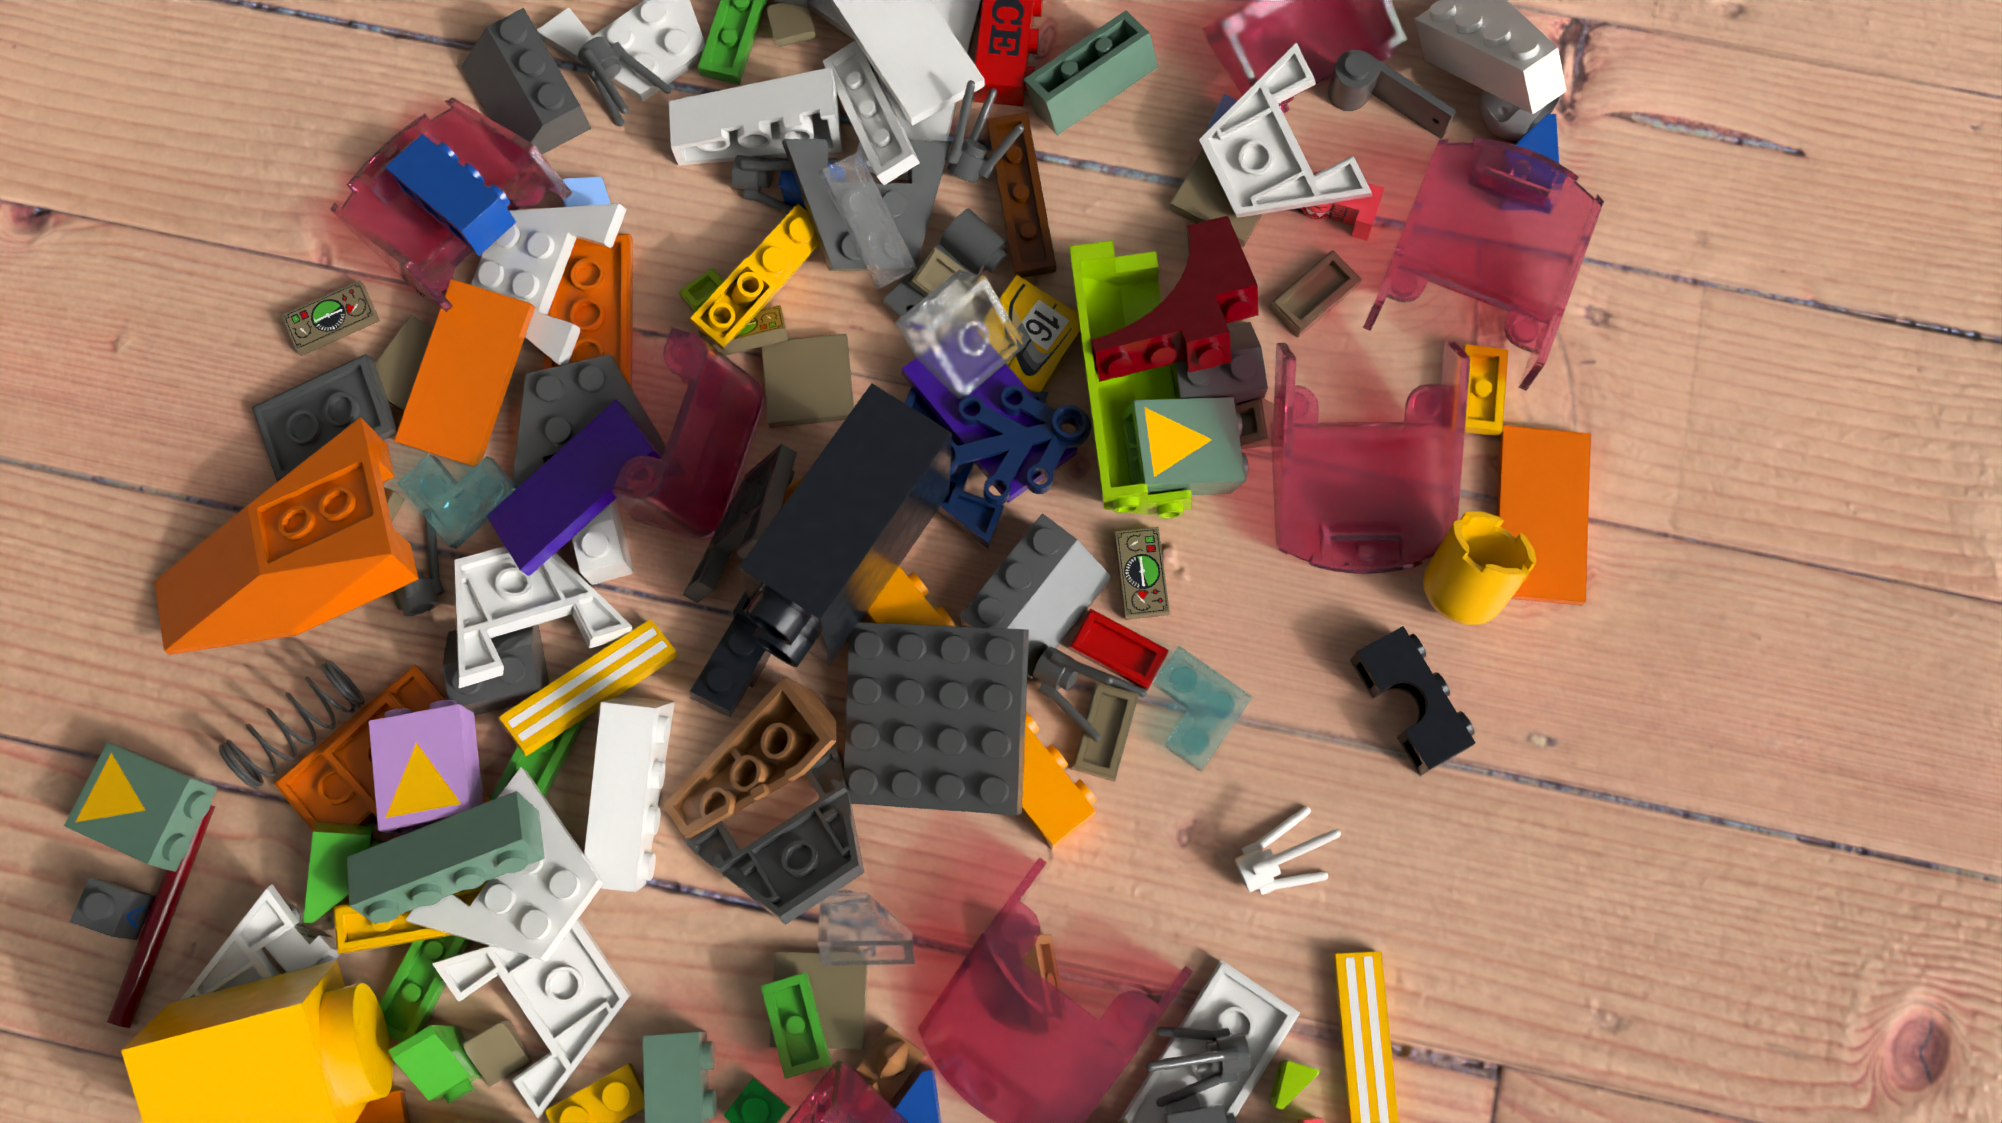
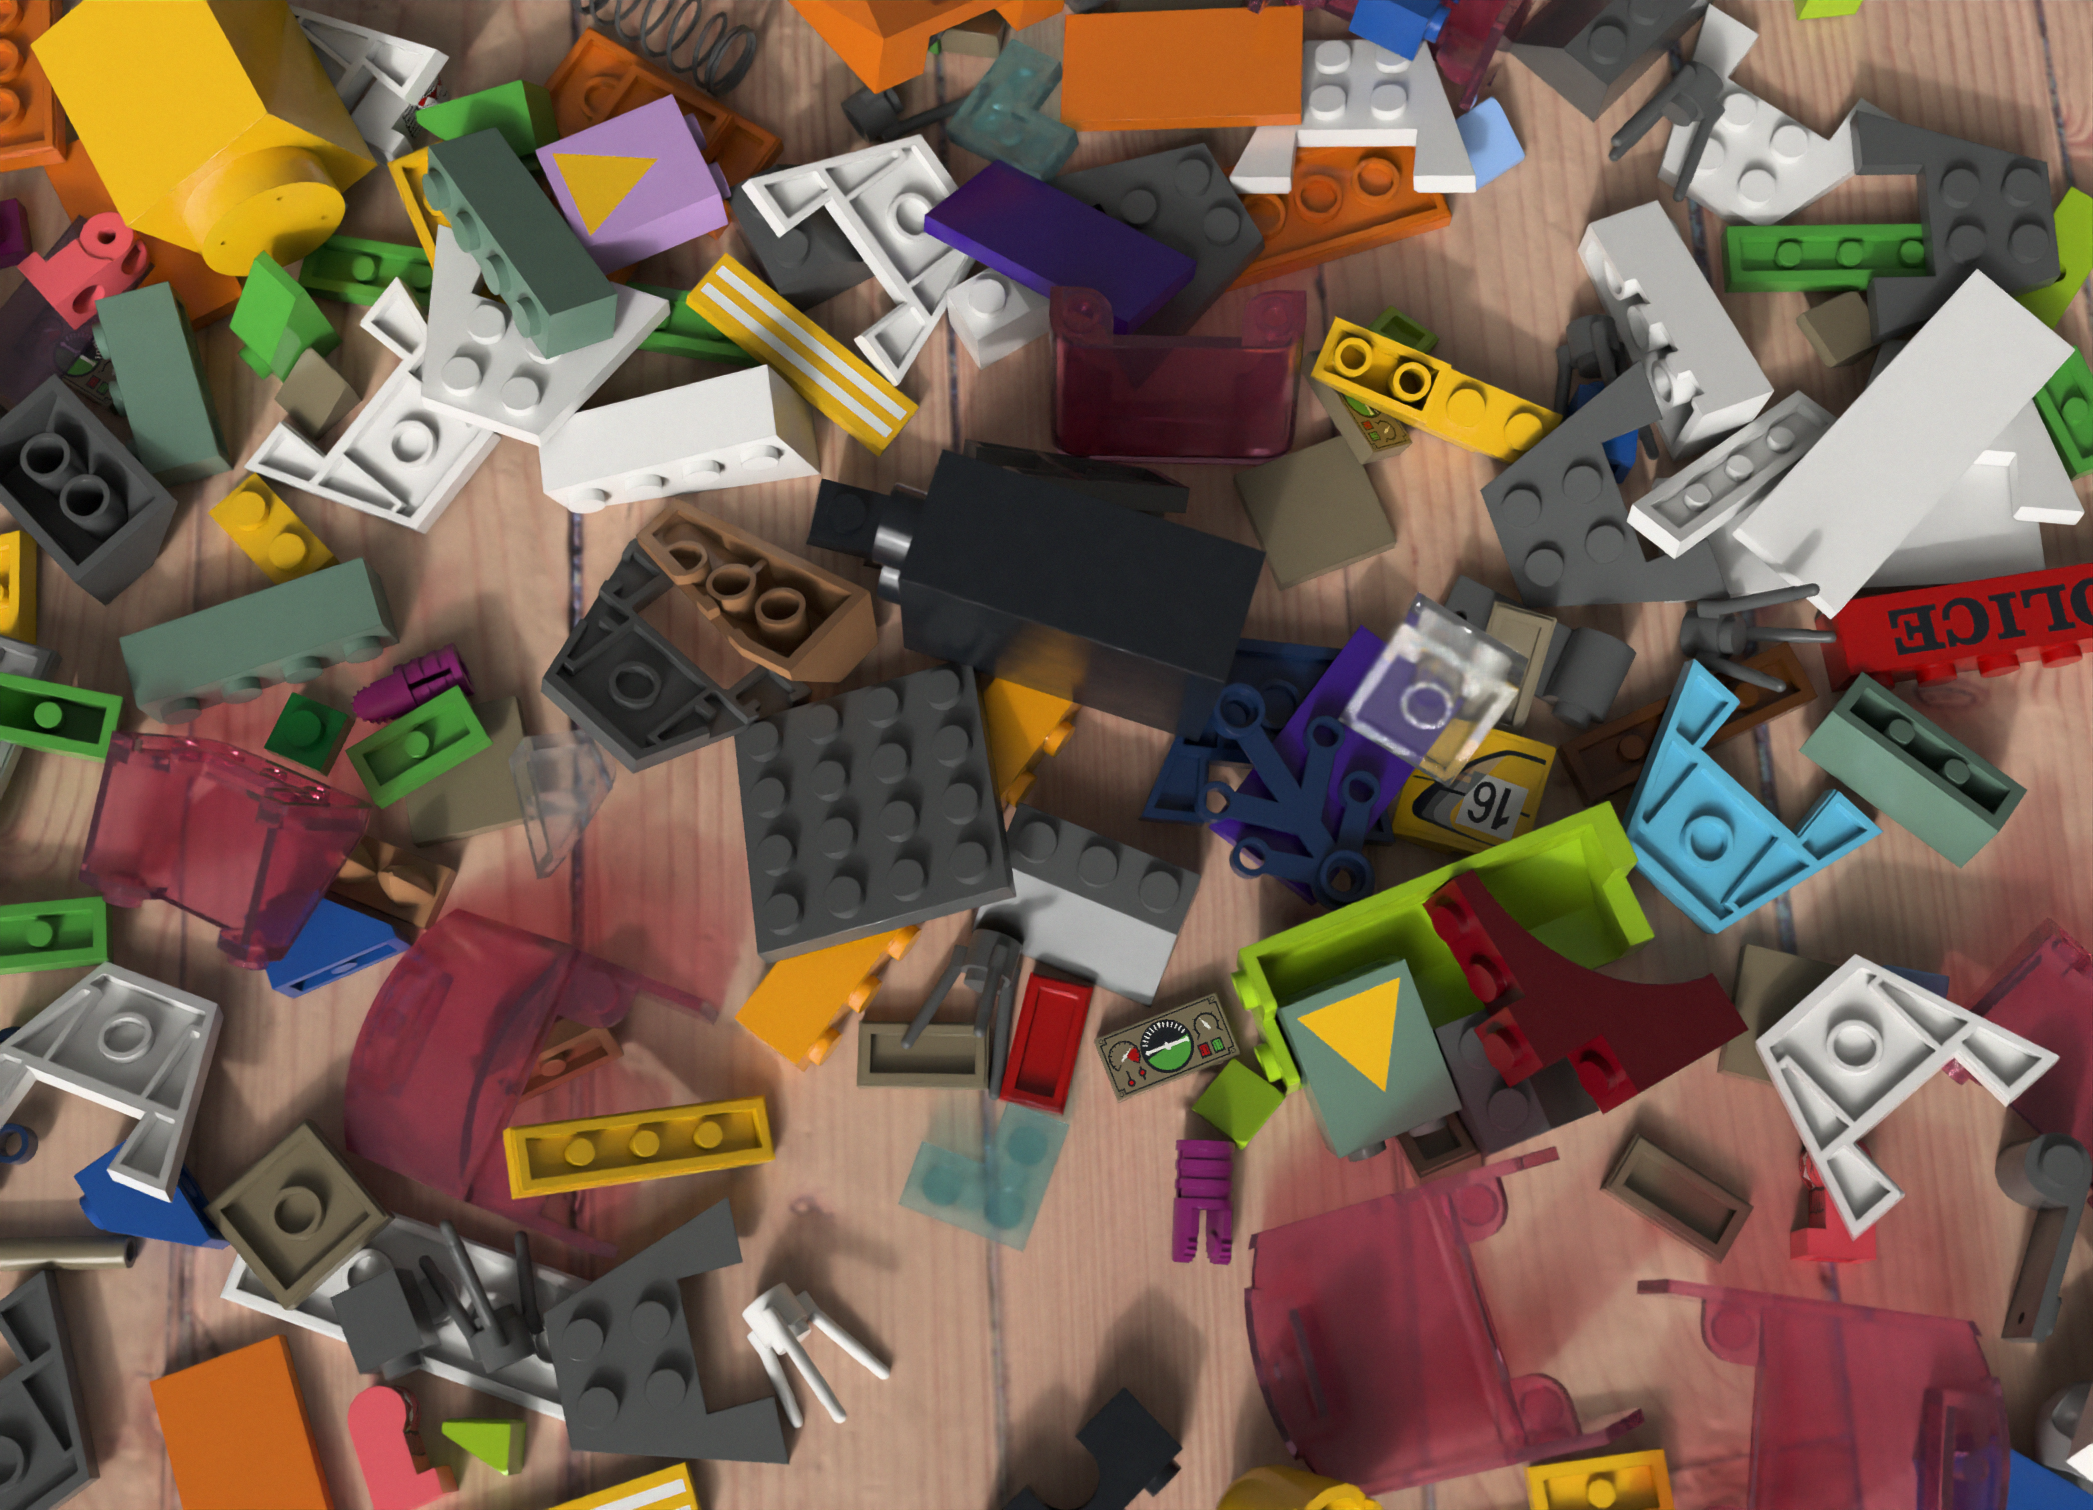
camera: 75 degrees right, 0 degrees up
(751, 1037) = (413, 685): none -> magenta hinge
(868, 220) = (1563, 513): clear tile -> none
(1096, 202) = (1708, 836): none -> medium azure wing
(1124, 930) = (637, 1146): none -> yellow tile
(1191, 537) = (1238, 1103): none -> lime slope
(1247, 575) = (1203, 1184): none -> magenta hinge
(1261, 973) = (631, 1362): none -> dark grey wing

